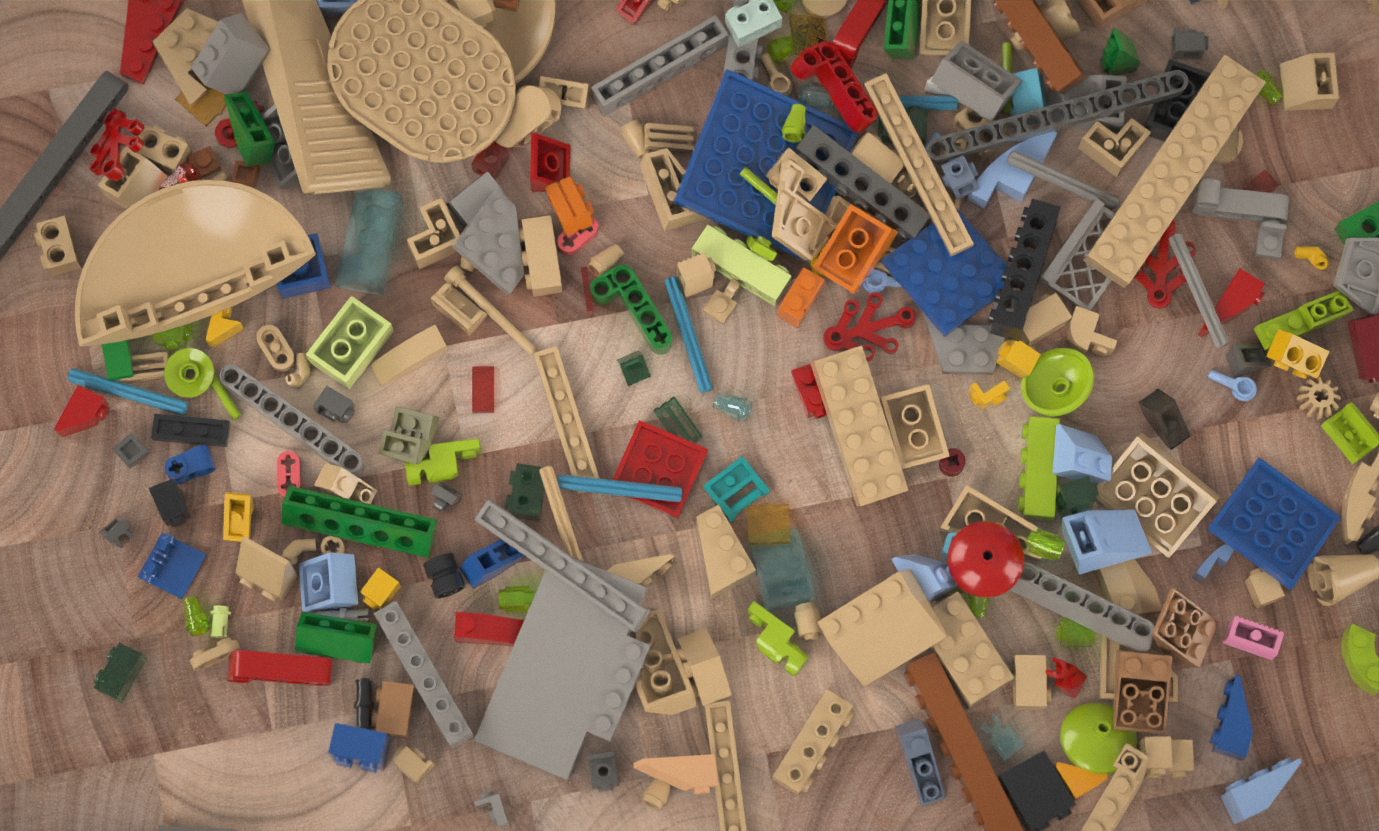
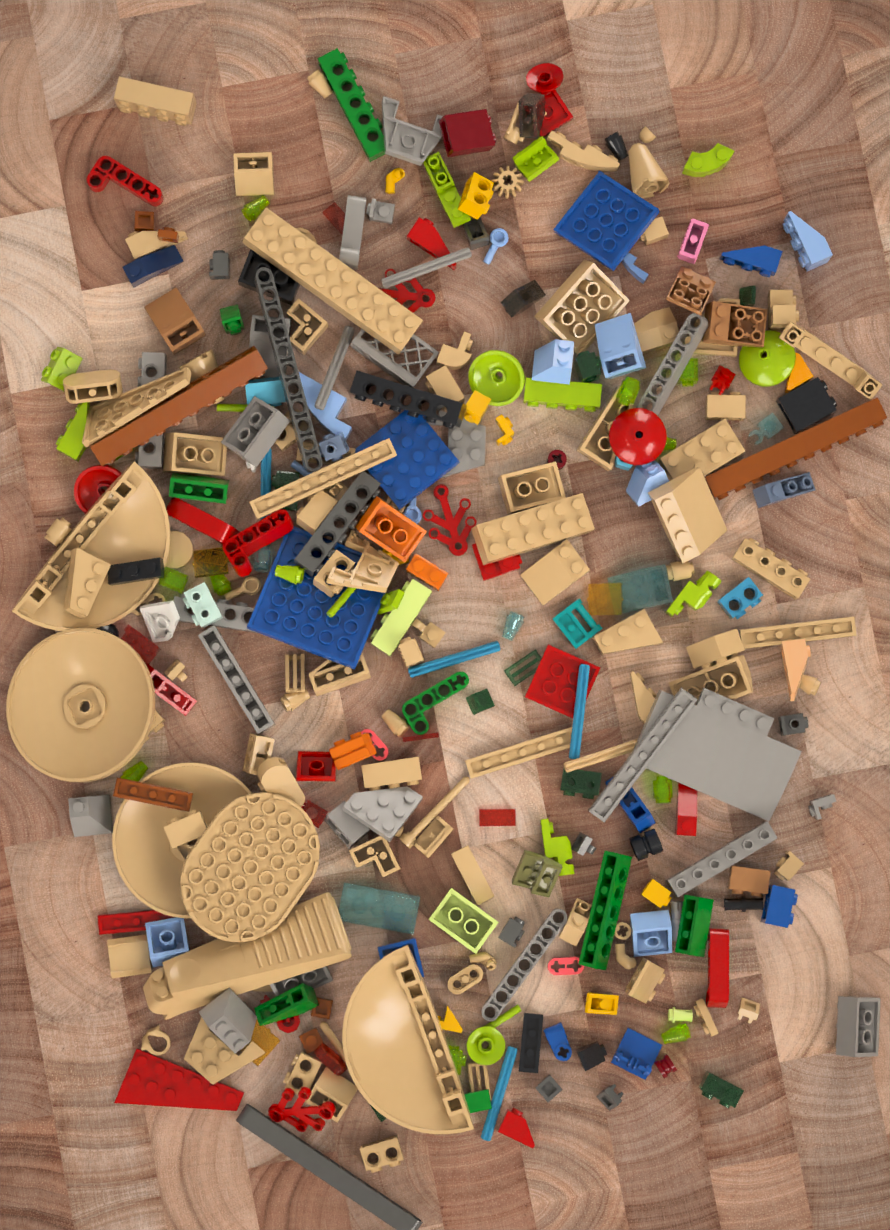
camera: 90 degrees left, 10 degrees up
(153, 601) = (665, 1066): none -> dark red wheel
(224, 710) = (748, 1009): none -> tan tile
(777, 698) = (737, 595): none -> dark azure brick
(804, 461) = (555, 572): none -> tan slope
(1181, 714) = (747, 296): none -> clear green slope

